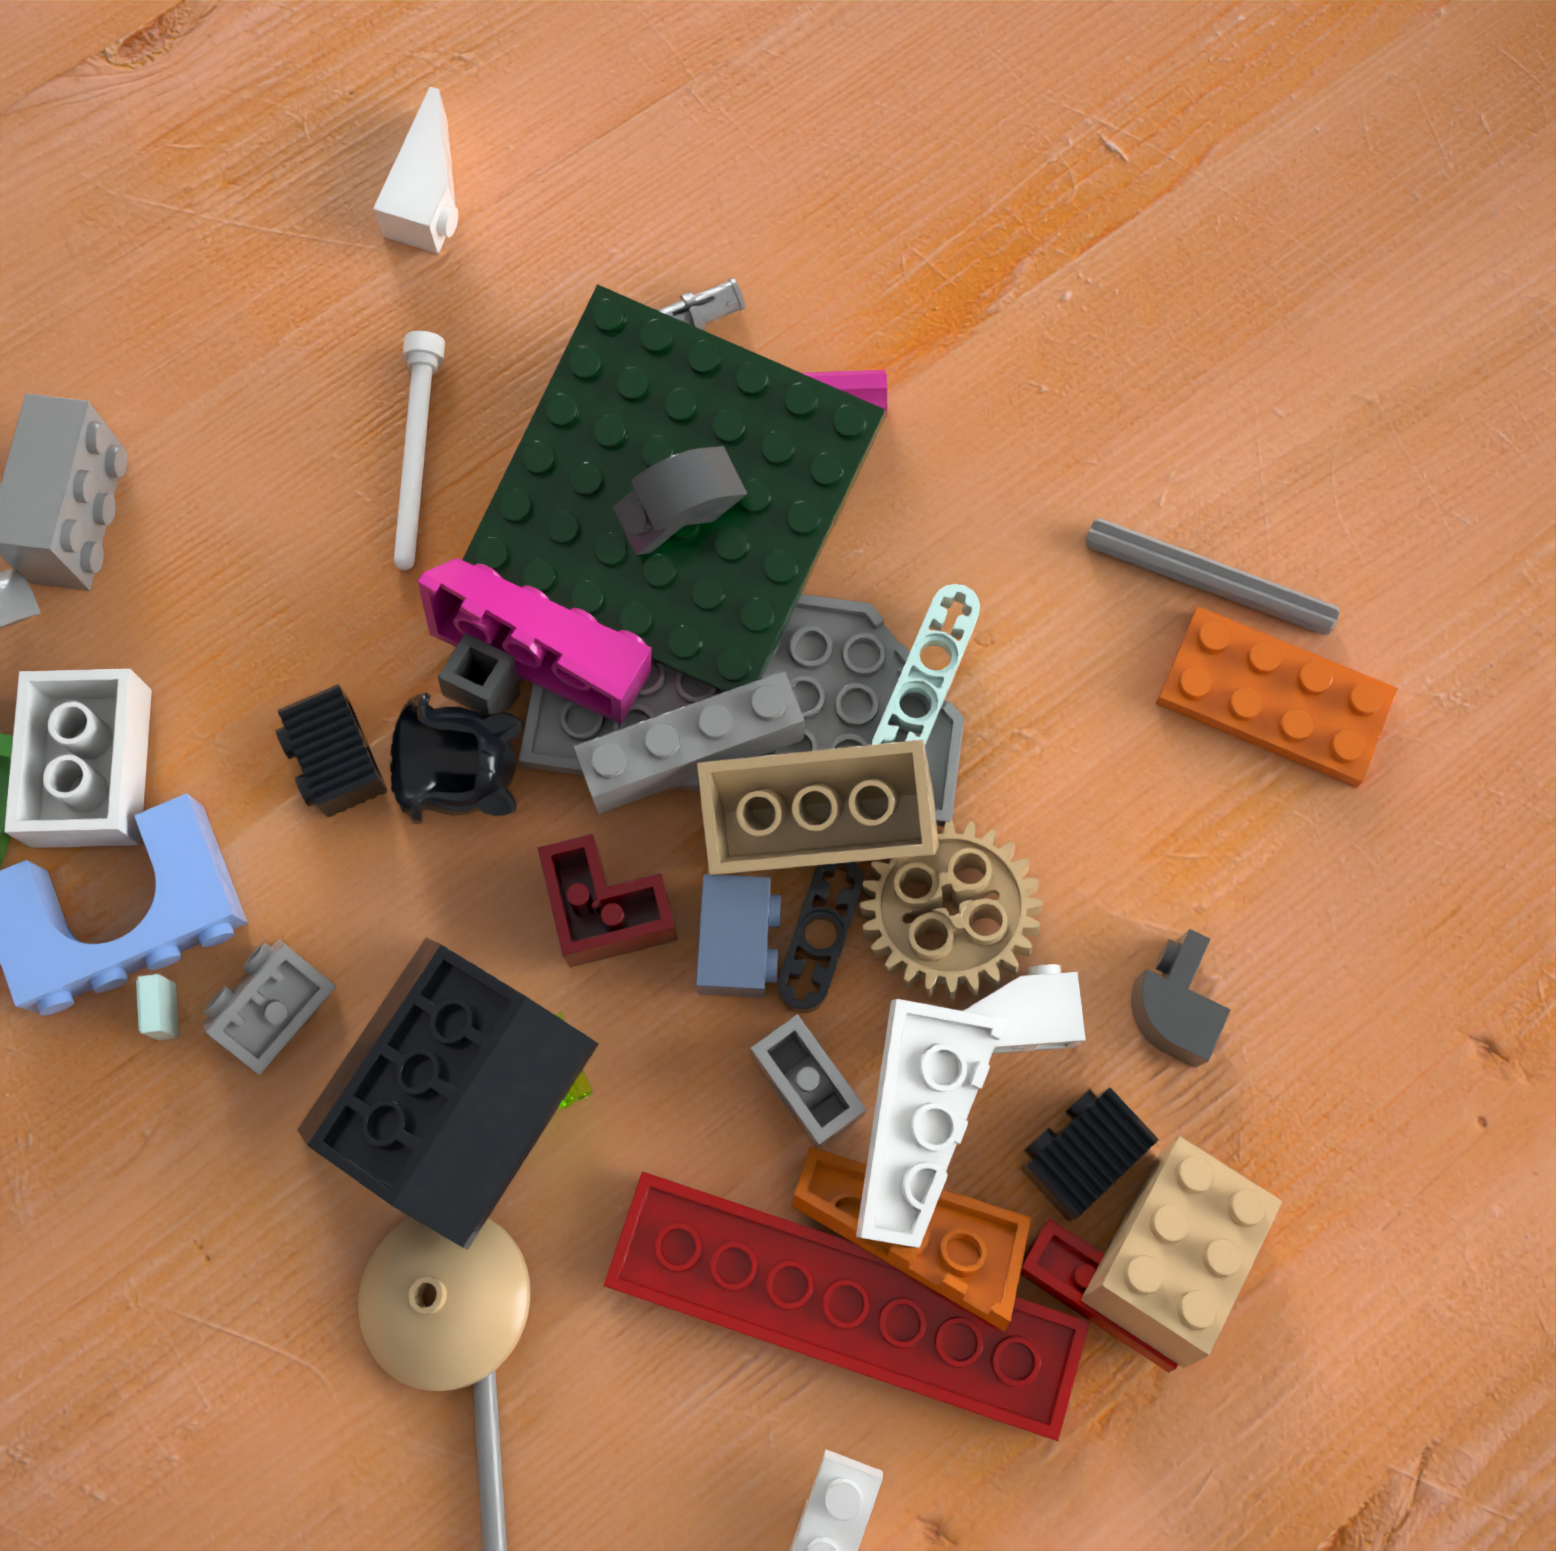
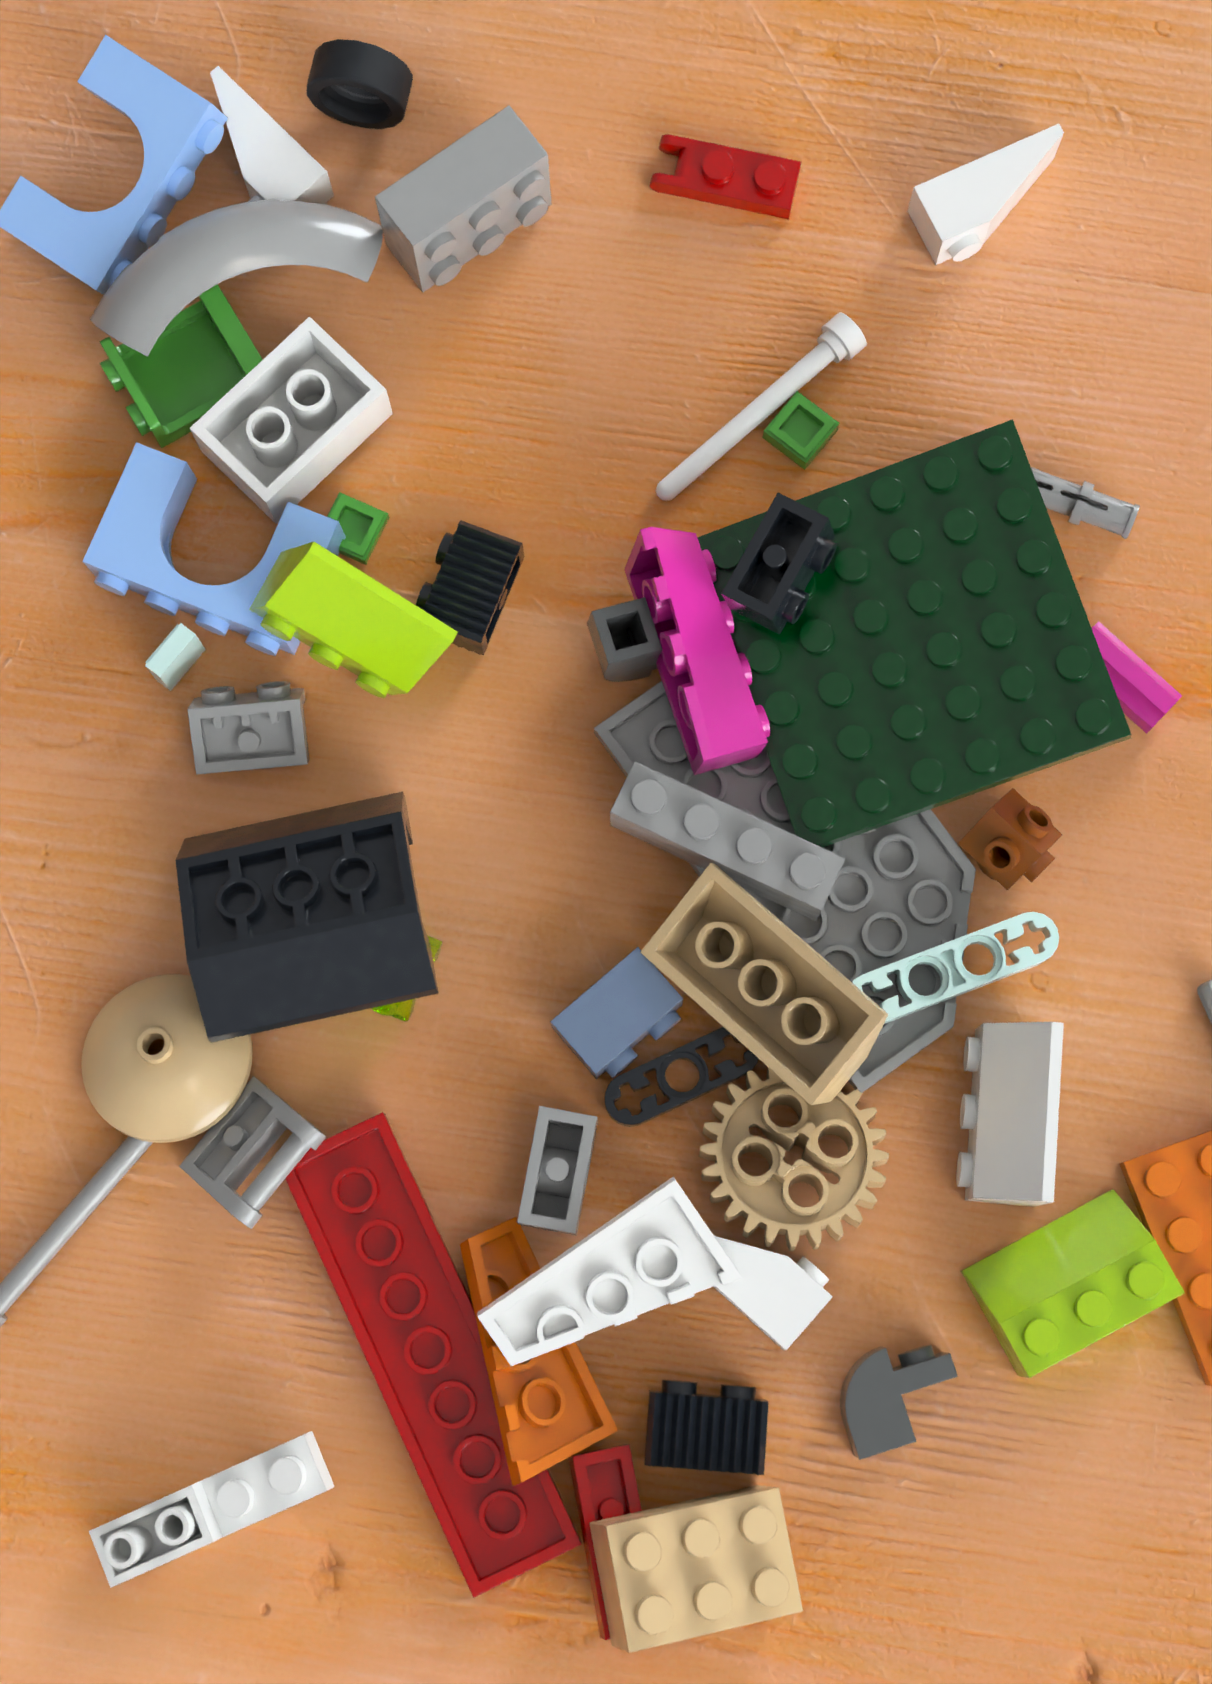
camera: 50 degrees right, 5 degrees up
(208, 787) = (360, 524): none -> bright green tile
(234, 320) = (728, 176): none -> red hinge
(265, 848) = (350, 620): none -> lime slope
(452, 760) = (546, 682): black hair -> none
(456, 437) = (800, 430): none -> bright green tile
(537, 517) = (780, 563): none -> black brick
(560, 1298) = (240, 1142): none -> light grey plate
(598, 918) = (530, 898): dark red brick -> none
(678, 493) = (900, 649): dark grey brick -> none
(875, 562) = (1012, 840): none -> dark orange brick
(1063, 732) = (1011, 1113): none -> white slope
(1212, 807) = (1071, 1283): none -> lime slope

